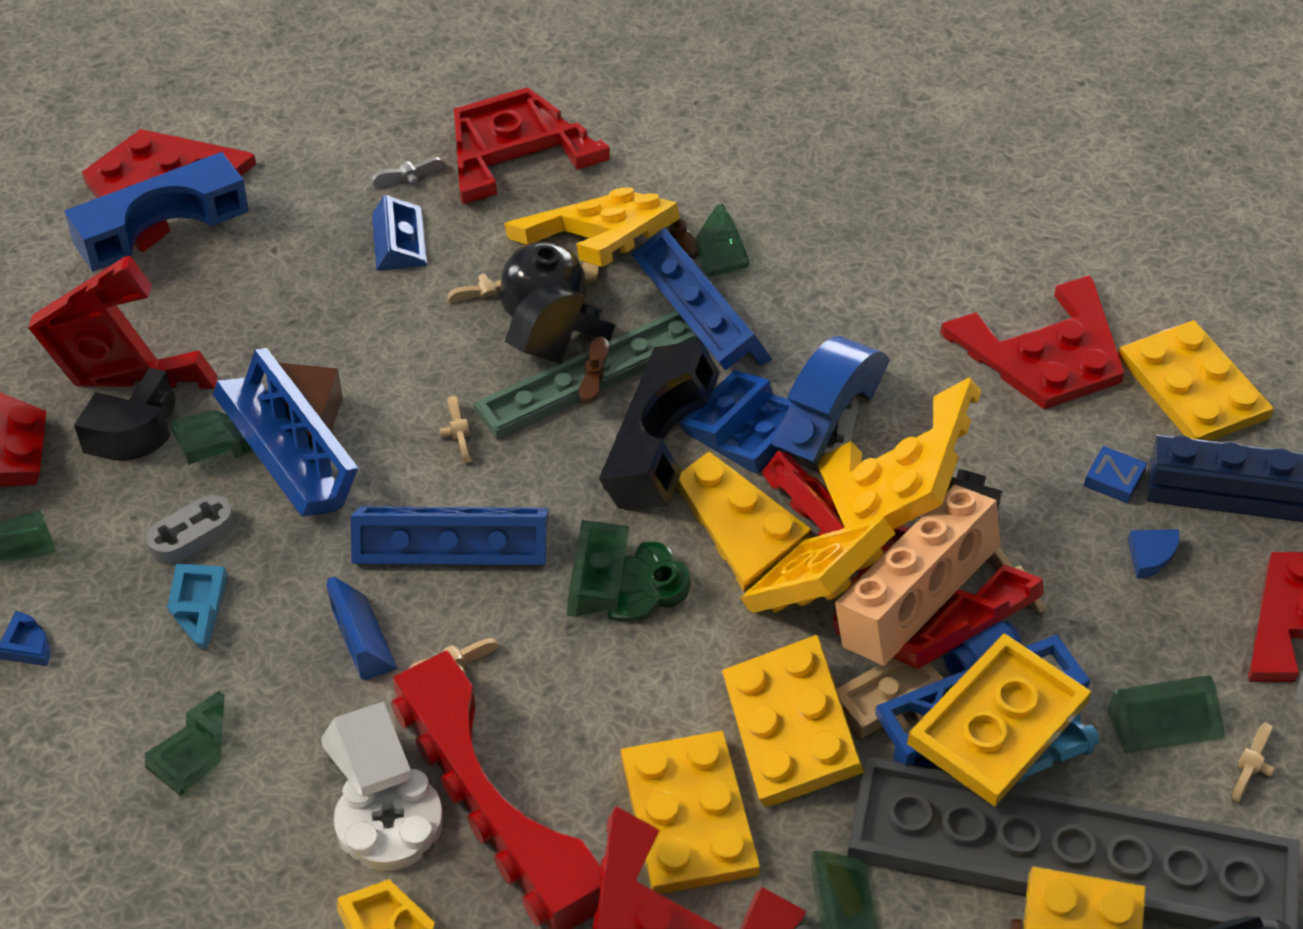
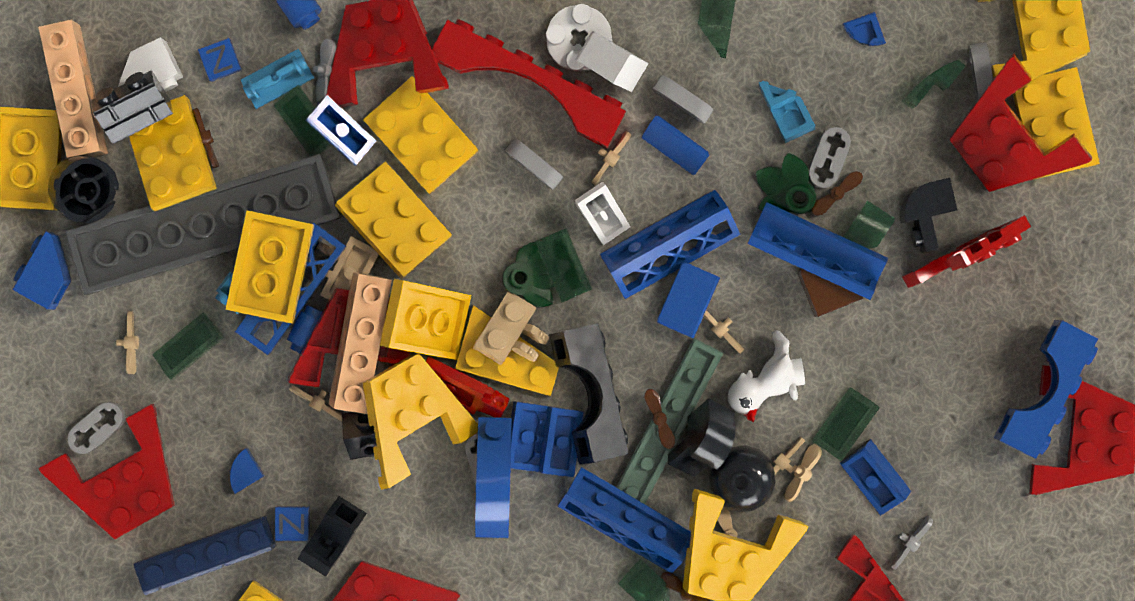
camera: 150 degrees right, 40 degrees up
(235, 491) = (837, 193): none -> reddish brown piece
(265, 521) = (783, 182): none -> dark green plate
(311, 671) = (683, 99): none -> light grey beam
(390, 284) = (845, 424): none -> clear green slope
(430, 349) = (776, 378): none -> white animal
(472, 464) = (688, 299): none -> blue slope
(473, 268) = (803, 472): none -> tan piece
(509, 608) = (602, 213): none -> white slope
(558, 695) = (534, 163): none -> light grey beam
(717, 533) = (505, 328): none -> tan hinge
(802, 854) = (340, 130): none -> slope
(1076, 431) = (332, 536): none -> black brick

